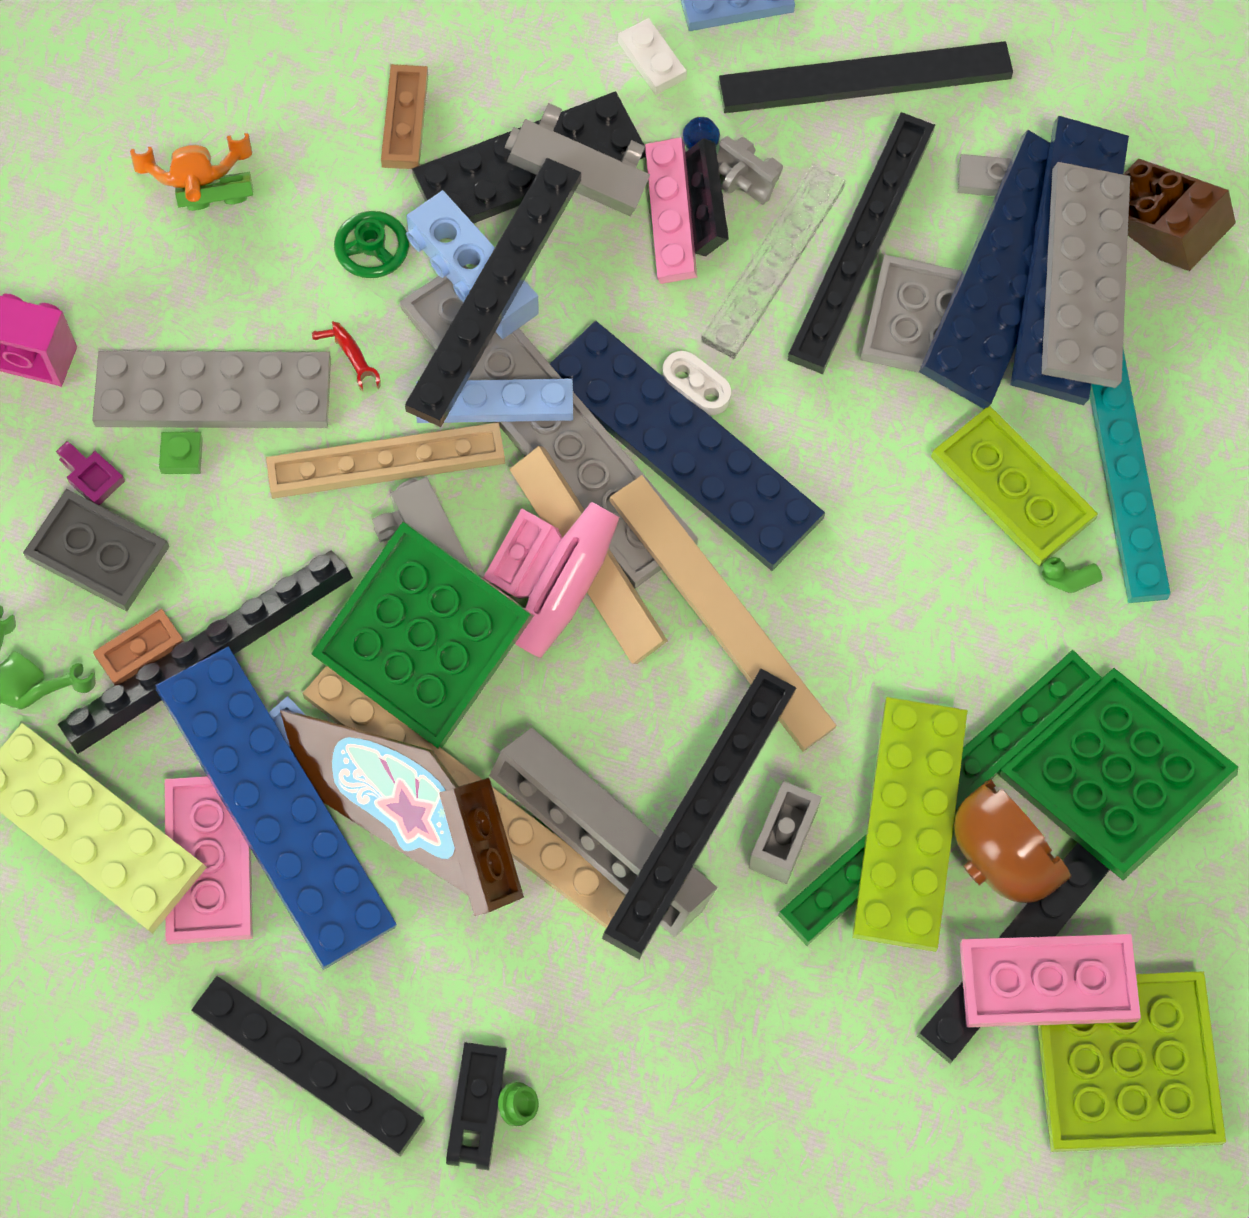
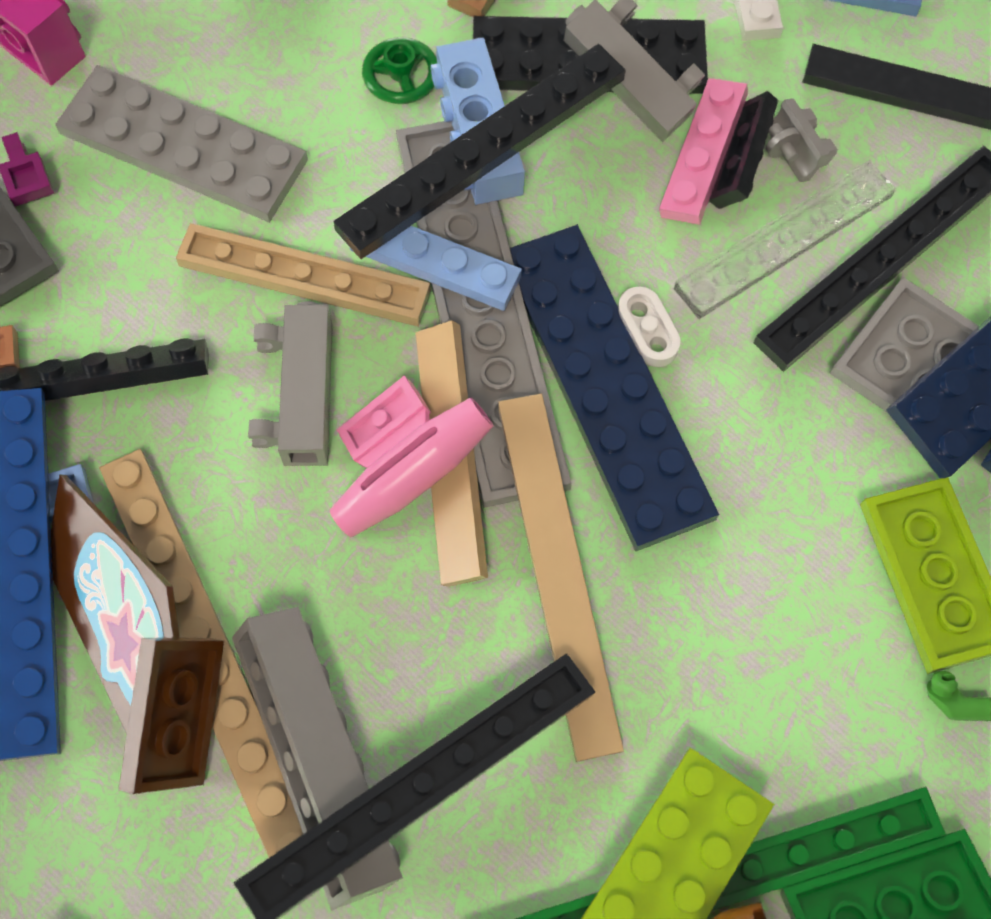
camera: 25 degrees right, 0 degrees up
(180, 453) = (119, 188): bright green plate -> none
(351, 350) = (325, 150): red piece -> none
(422, 635) = (238, 461): green plate -> none
(698, 129) = (770, 82): clear blue plate -> none
(784, 832) = (507, 848): light grey brick -> none

